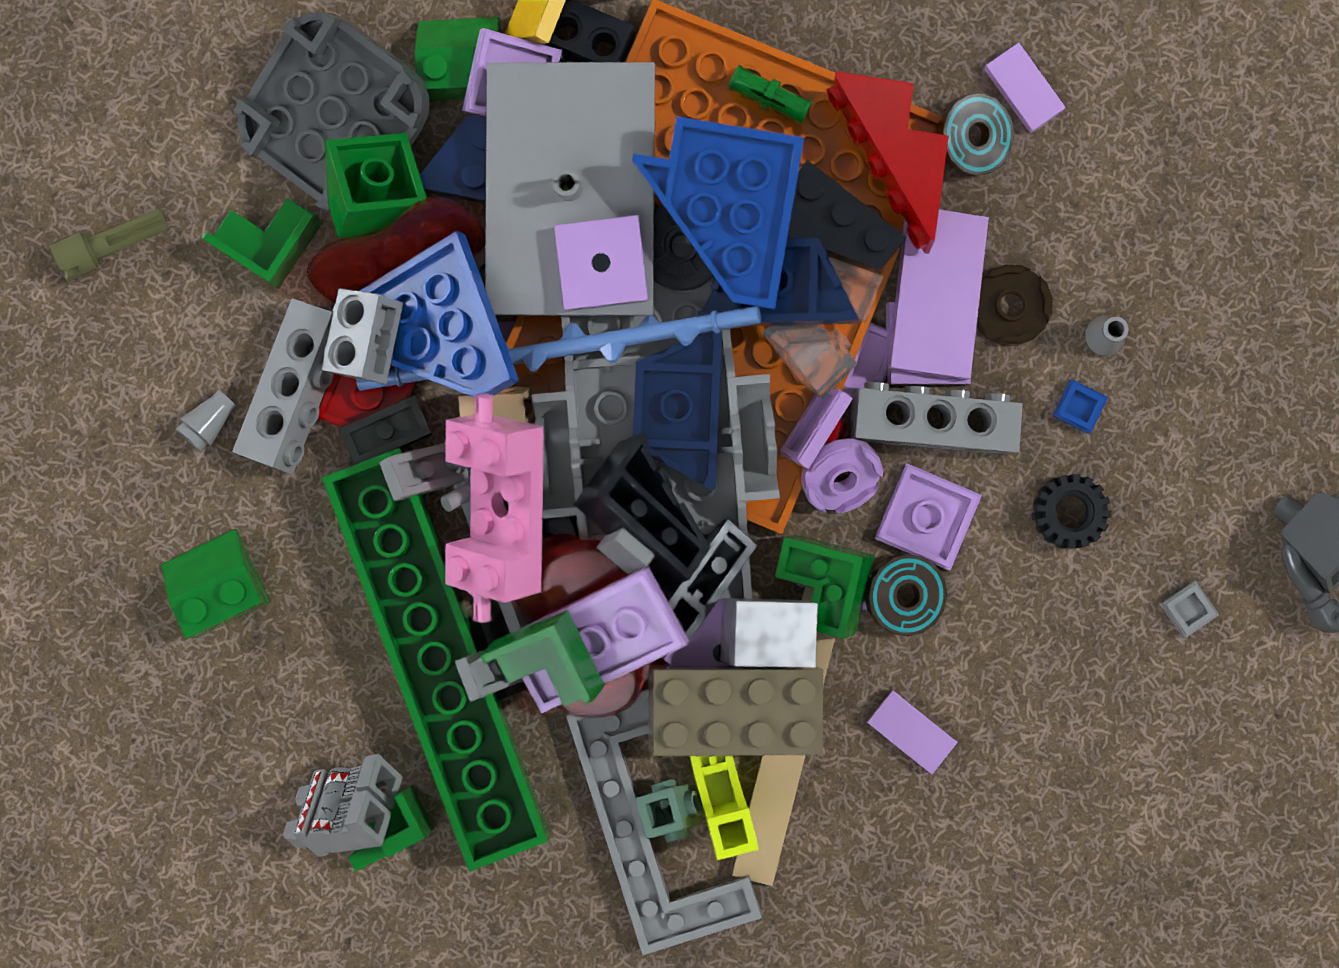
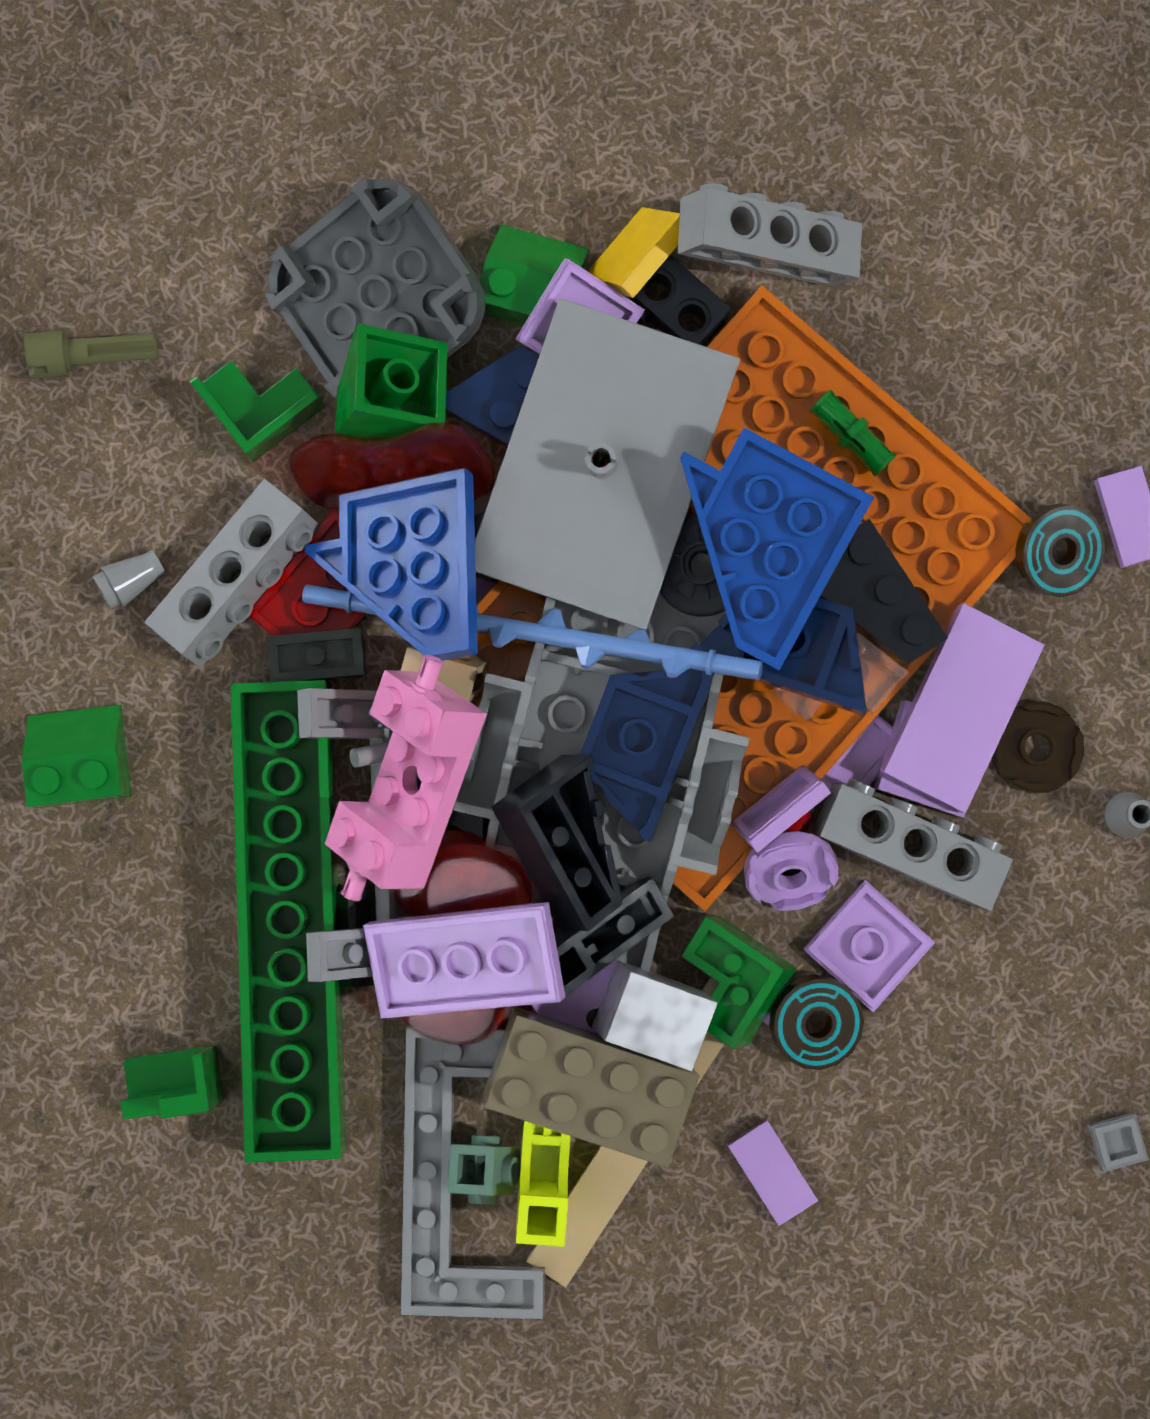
camera: 15 degrees right, 0 degrees up
(341, 805) = (131, 1044): light grey hips -> none
(362, 336) = (327, 547): light grey brick -> none
(551, 646) = (419, 954): green panel -> none
(601, 263) = (609, 556): lavender tile -> none
(626, 551) = (530, 876): light grey tile -> none
(813, 354) = (804, 731): clear slope -> none
(904, 159) = (974, 553): red slope -> none
(1079, 406) = (1074, 882): blue tile -> none
(1095, 506) = (1052, 1003): black tyre -> none

